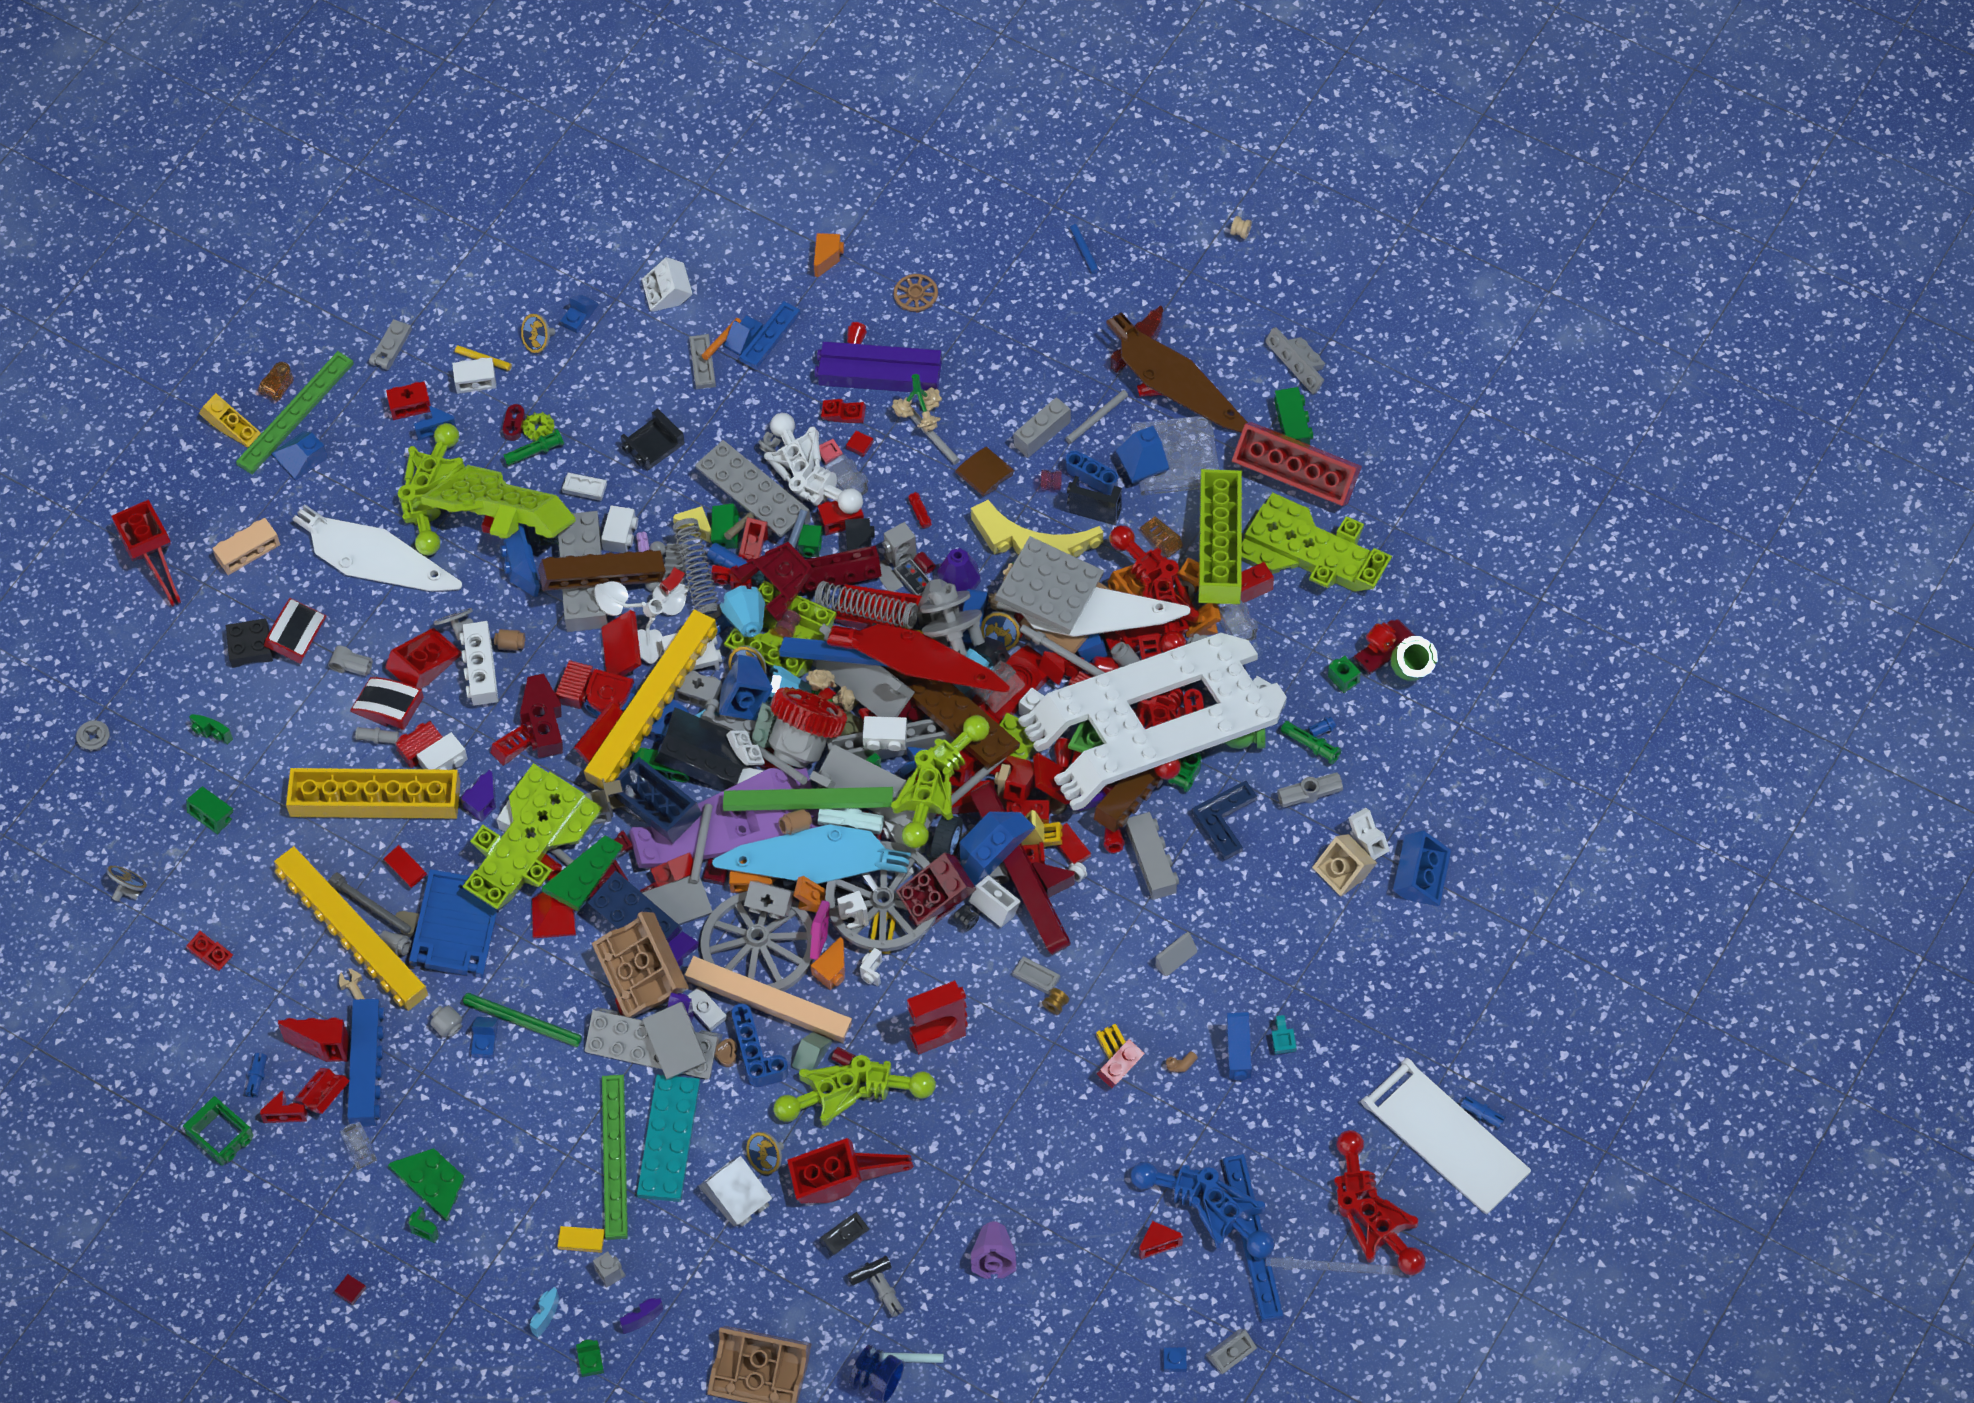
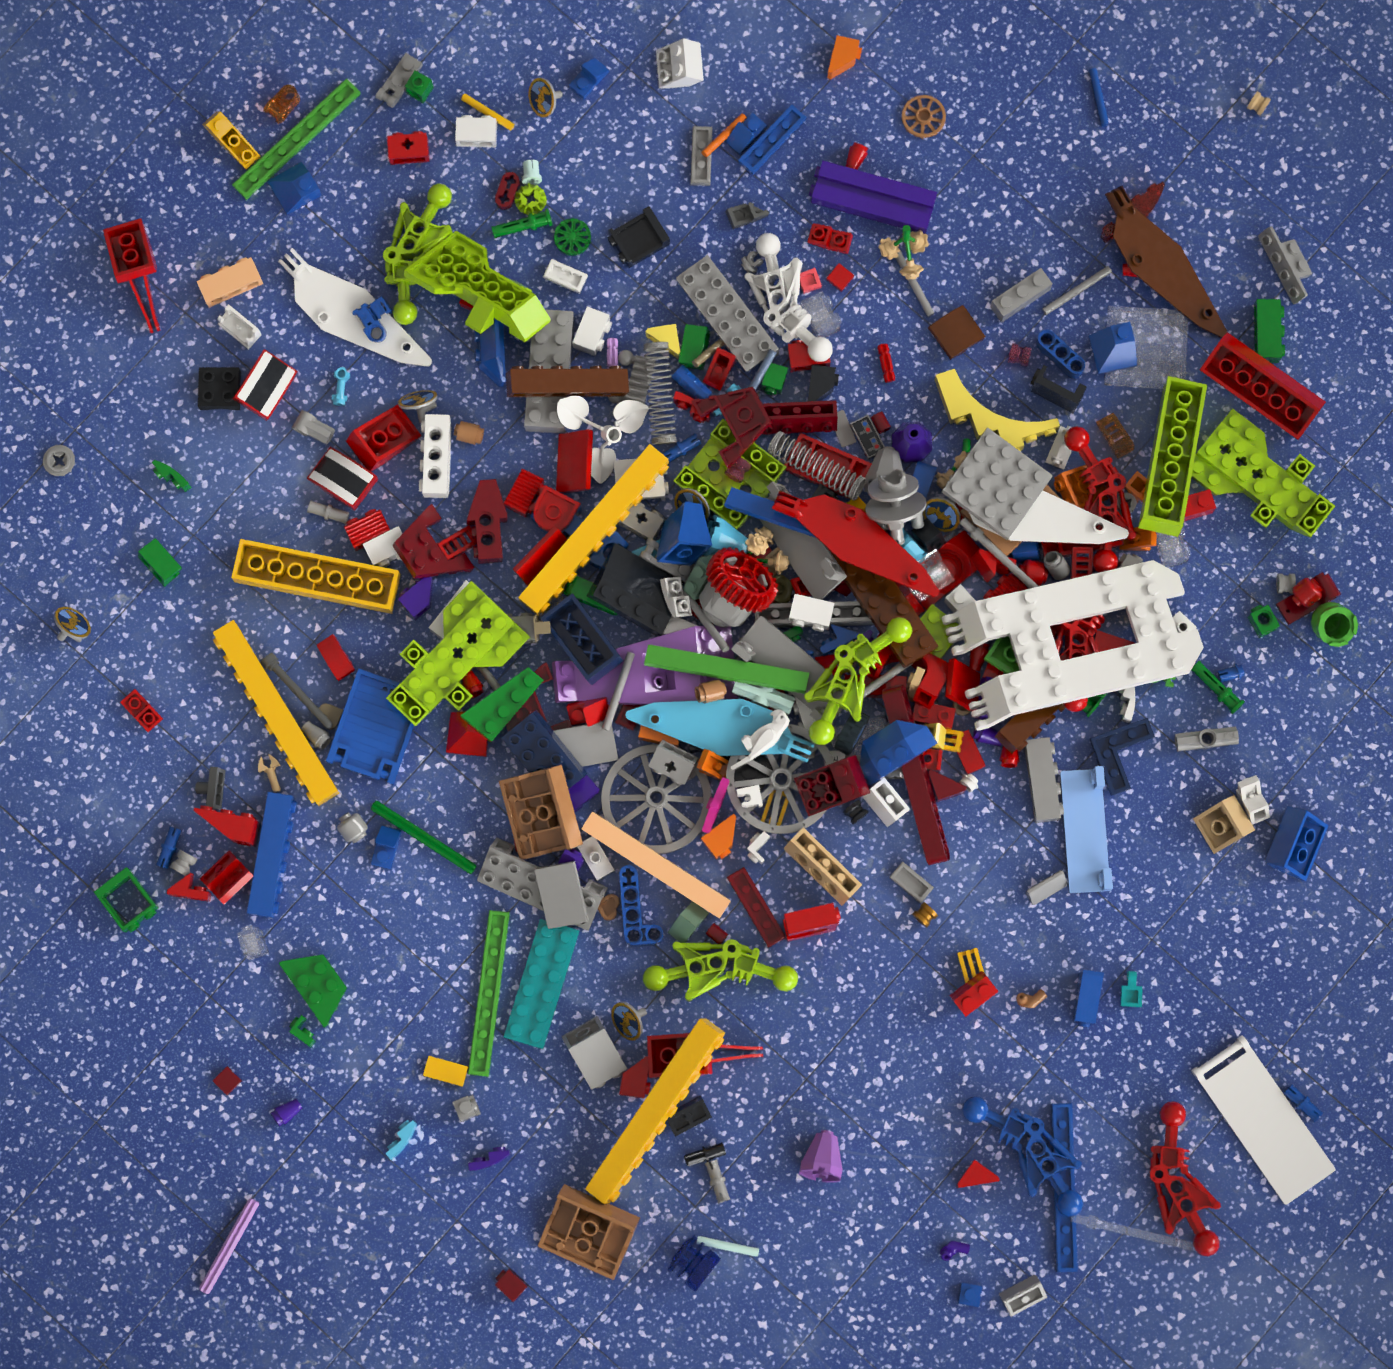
camera: 10 degrees right, 20 degrees up
(261, 584) = (239, 327): none -> white hinge
(274, 1084) = (183, 863): none -> light grey wheel
(296, 1007) = (213, 788): none -> dark grey tile
(373, 612) = (342, 376): none -> medium azure bar
(395, 549) = (371, 315): none -> blue piece
(411, 345) = (419, 86): none -> green brick
(417, 1307) = (285, 1112): none -> dark purple cone
(426, 428) = (424, 183): blue slope -> none
(480, 753) = (423, 554): none -> dark red wing
(535, 403) = (531, 172): none -> light aqua bush
(585, 451) = (572, 237): none -> green wheel
(589, 1358) = (436, 1192): green bracket -> none
(672, 581) = (634, 402): red piece -> none
(744, 610) = (698, 453): medium azure cone -> none
(754, 405) = (744, 215): none -> dark grey slope
(782, 1210) = (634, 1080): none -> red slope
(808, 1227) = (655, 1111): none -> yellow brick
(857, 854) = (764, 737): none -> white animal
(880, 1026) = (756, 907): none -> dark red tile
(899, 544) = (859, 403): light grey brick -> none
(939, 969) = (822, 866): none -> tan brick
(1086, 824) = (986, 736): none -> dark purple cone
(1109, 557) = (1059, 451): none -> white hinge
(1147, 1316) = (952, 1248): none -> dark purple arm
(1188, 707) = (1107, 633): red beam -> none
(1205, 895) = (1085, 830): none -> light blue bracket
(1222, 763) = (1127, 708): none -> white slope
(1358, 636) = (1285, 583): none -> light grey wheel

